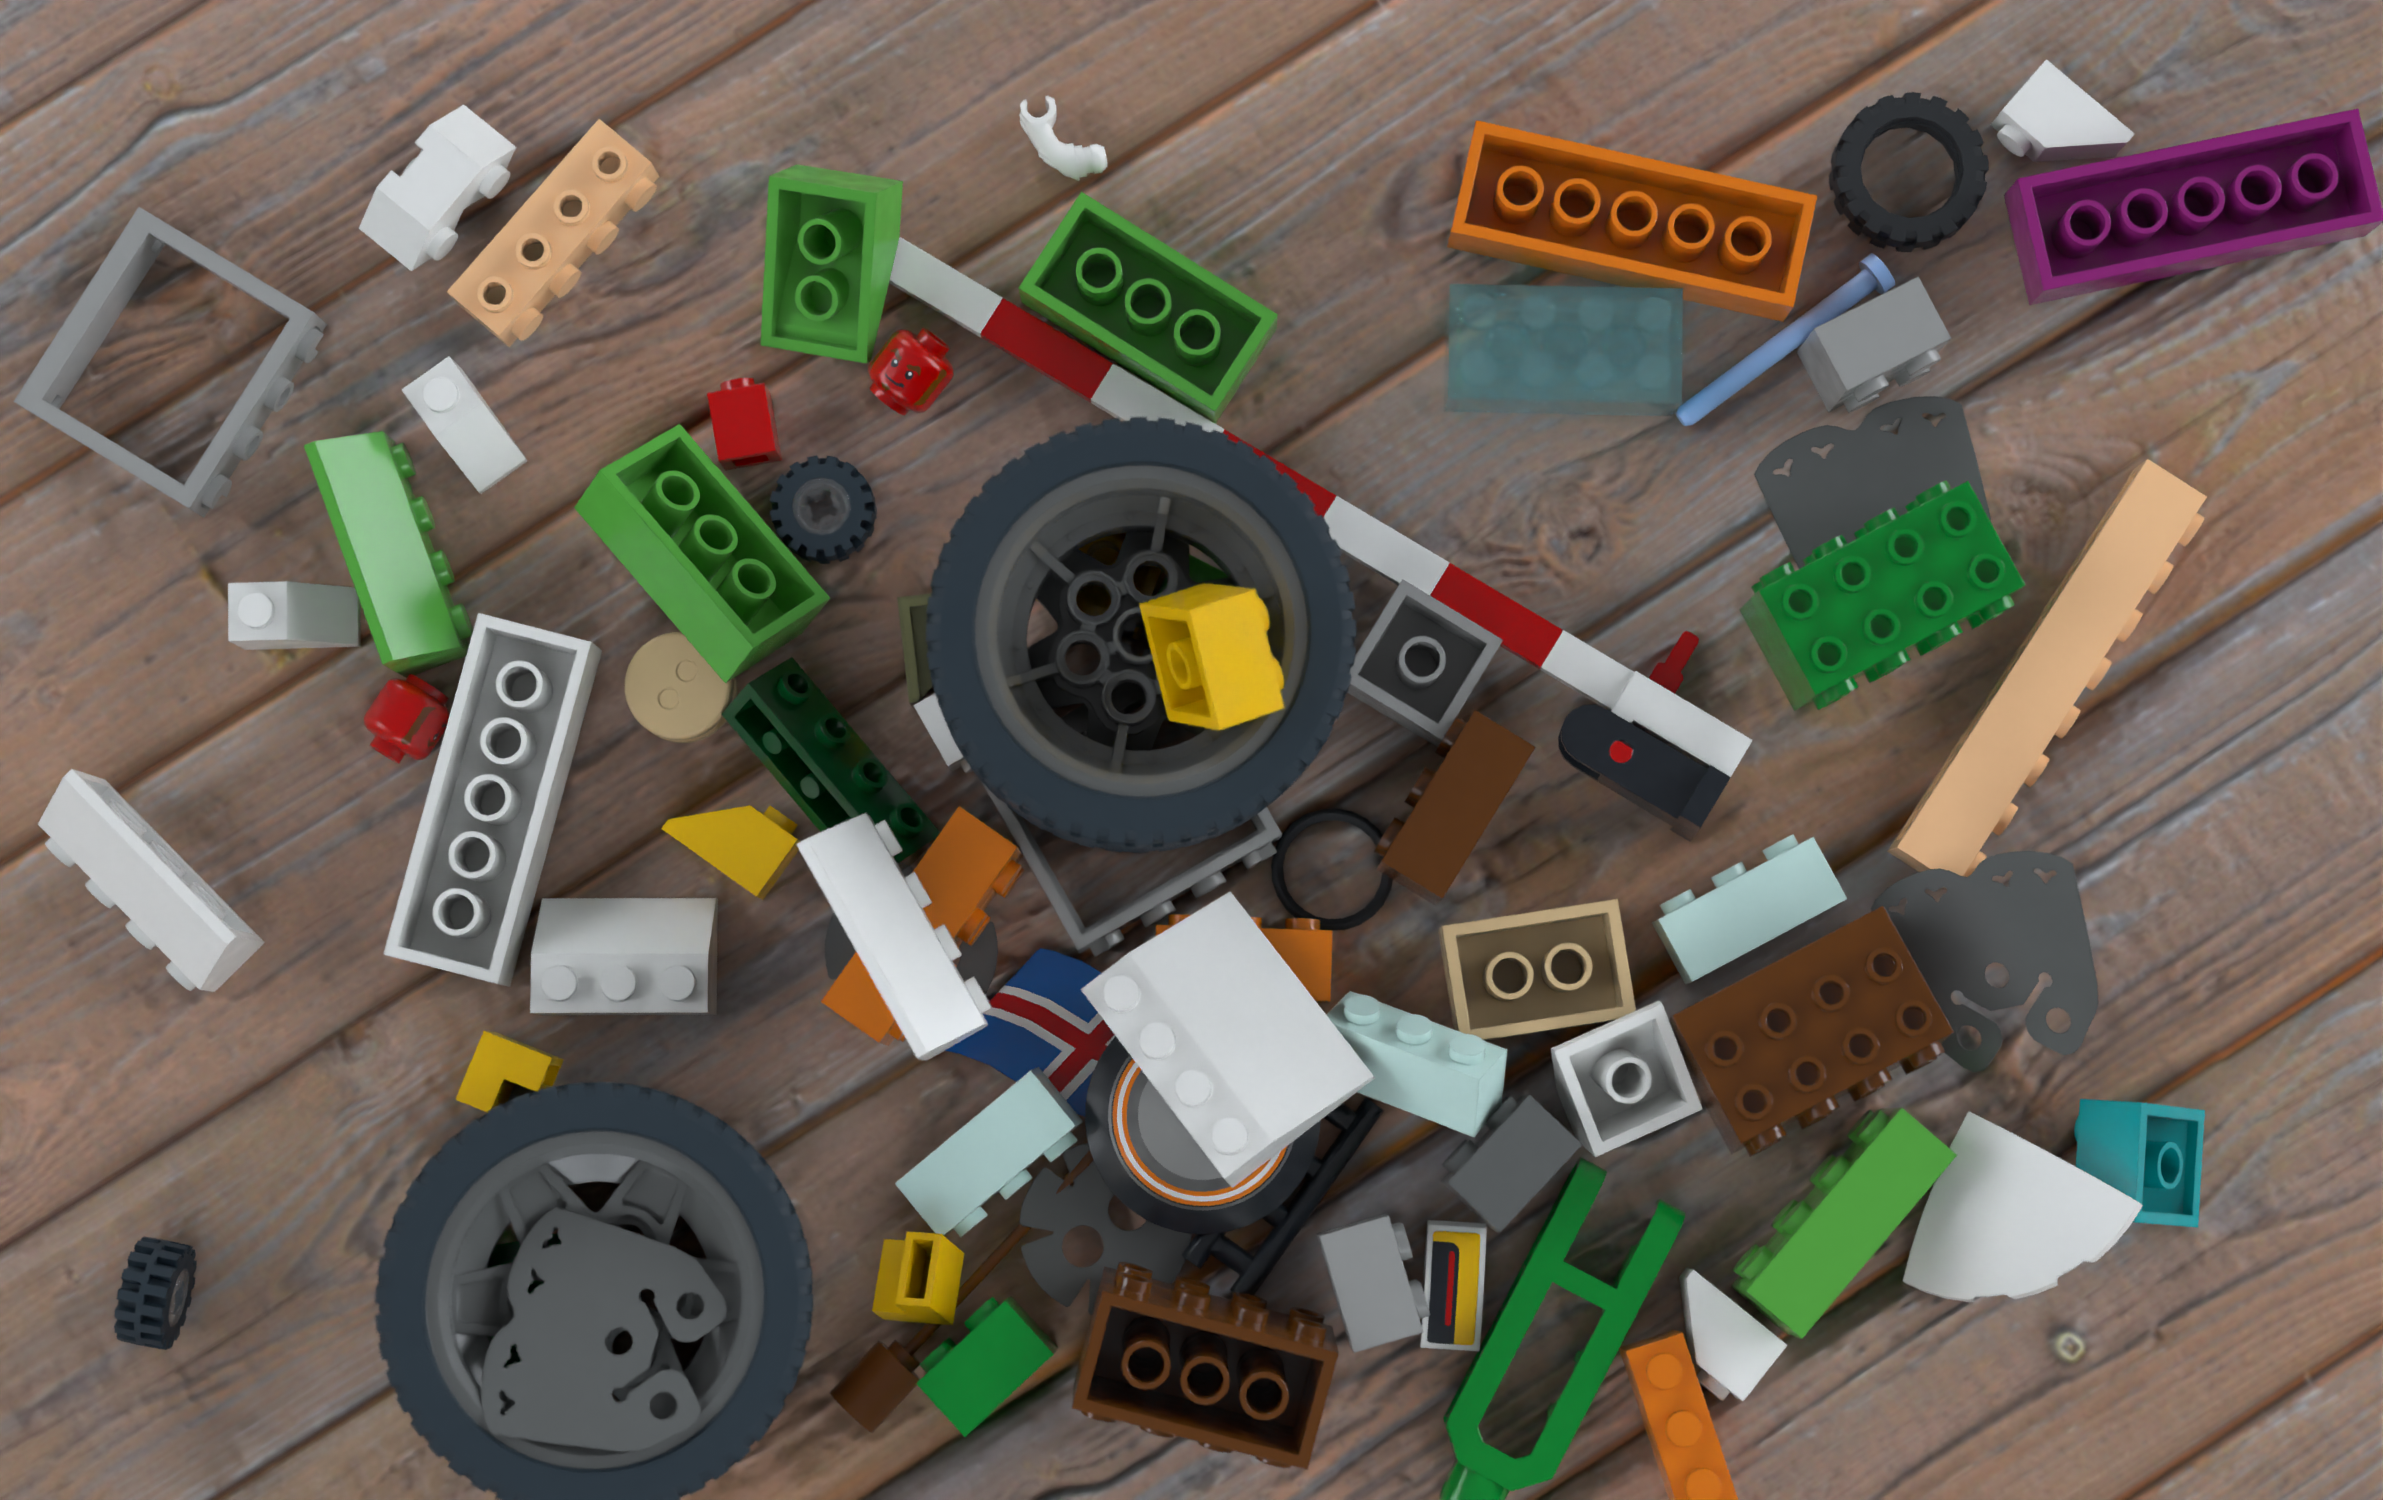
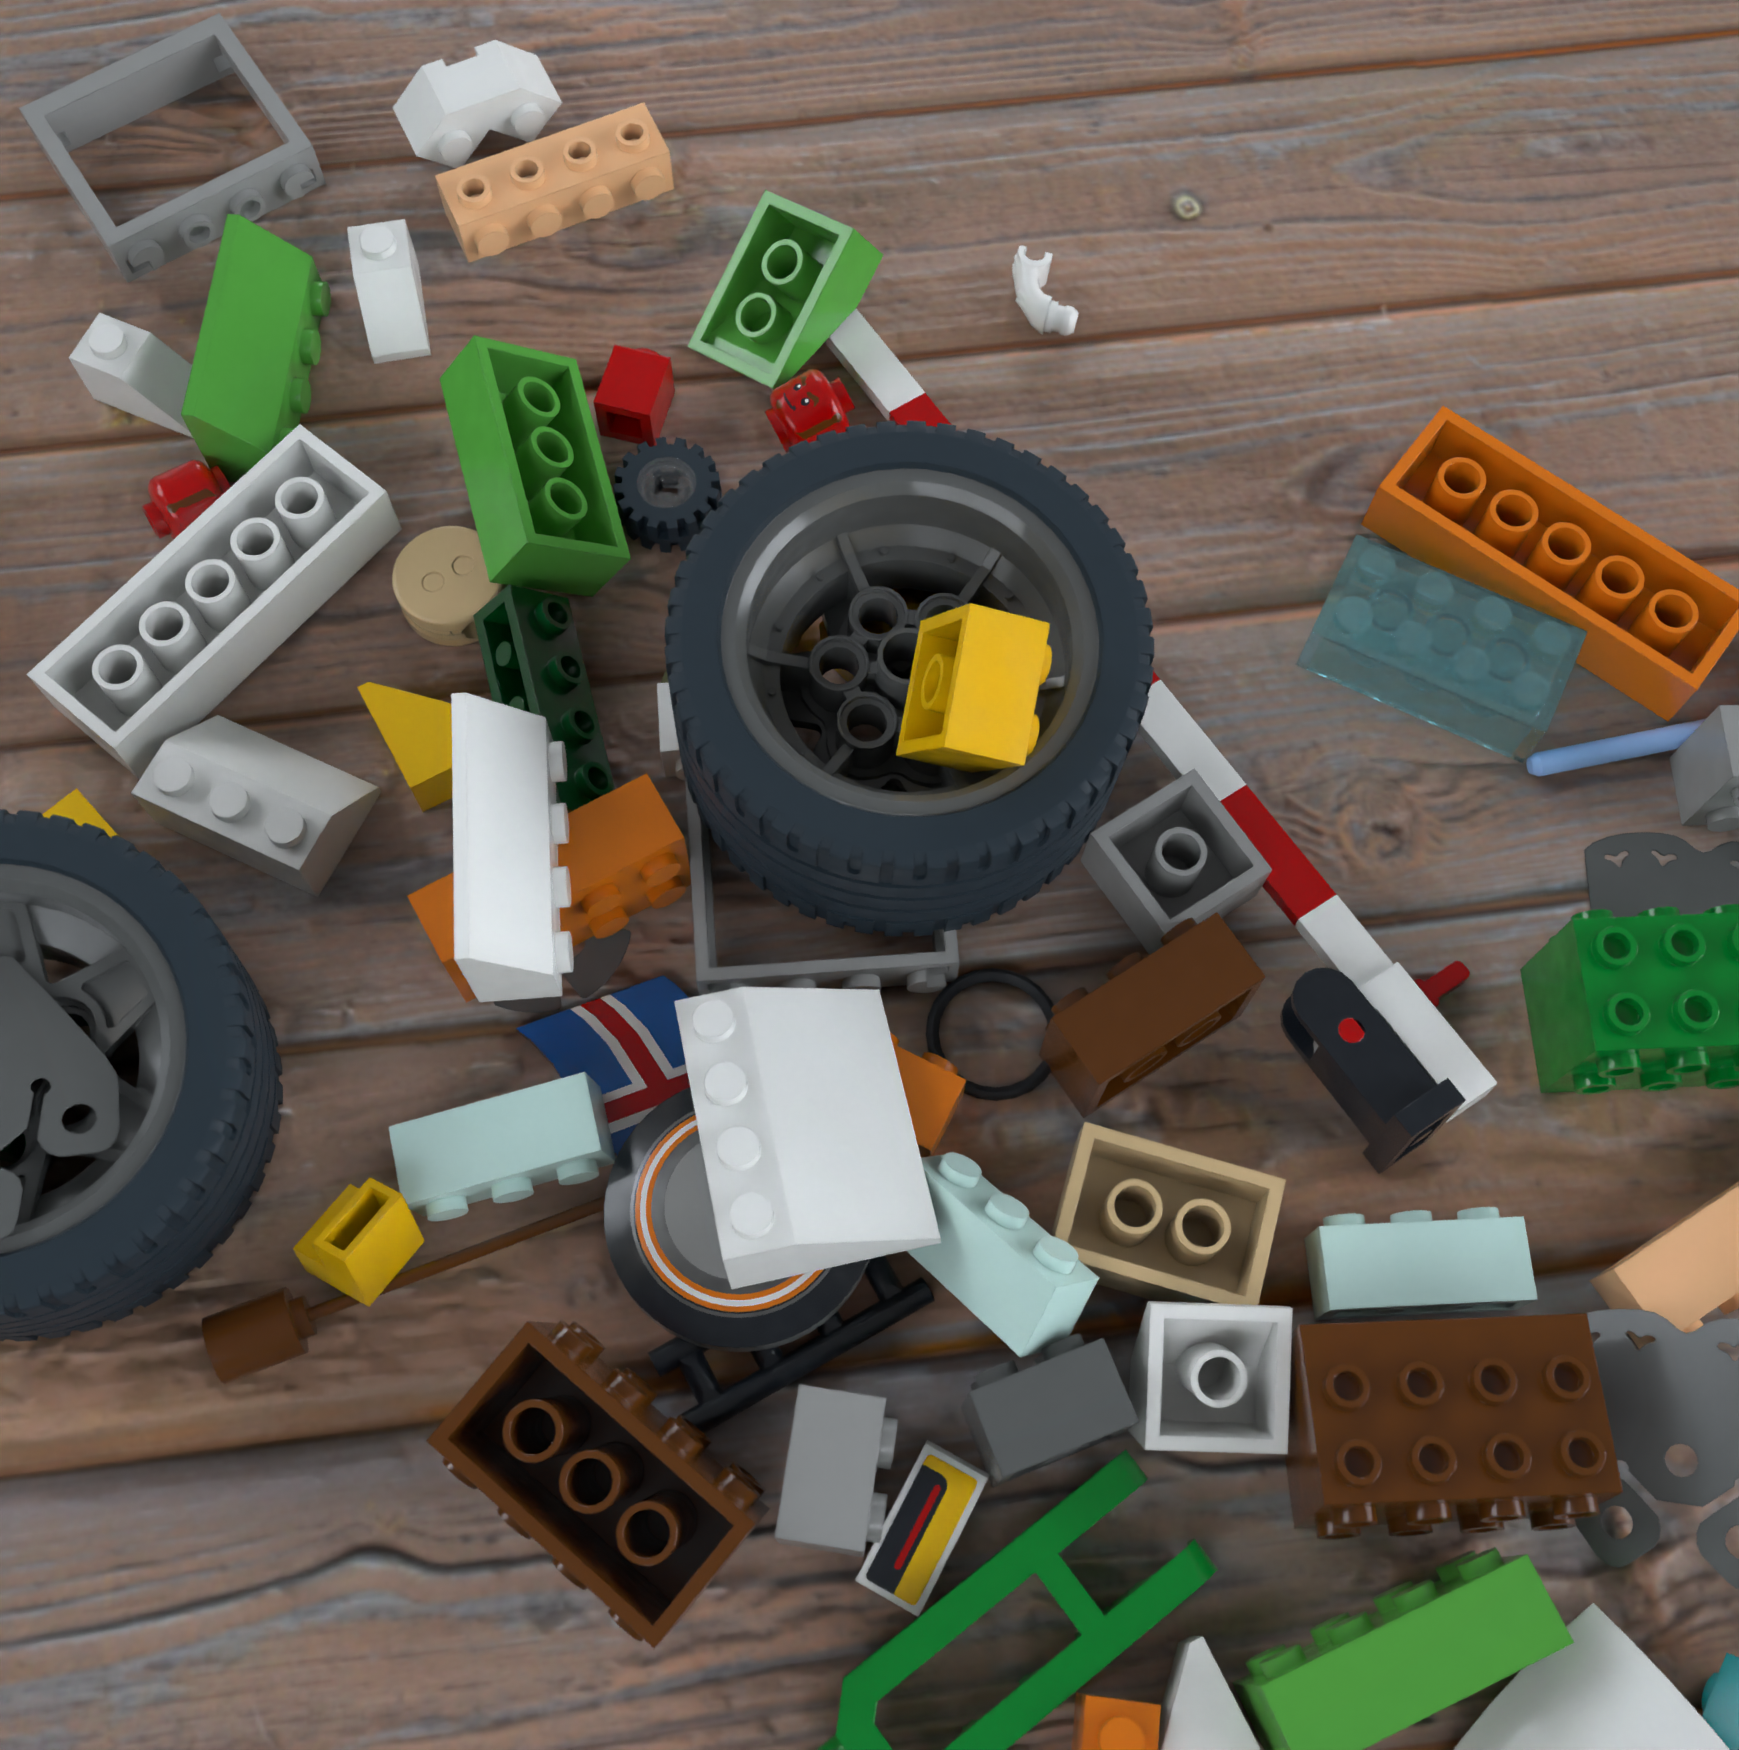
camera: 20 degrees right, 15 degrees down
(987, 1365) = (374, 1361): green brick -> none
(1088, 1206) = (576, 1251): dark grey piece -> none
(1148, 307) = (1046, 403): bright green brick -> none

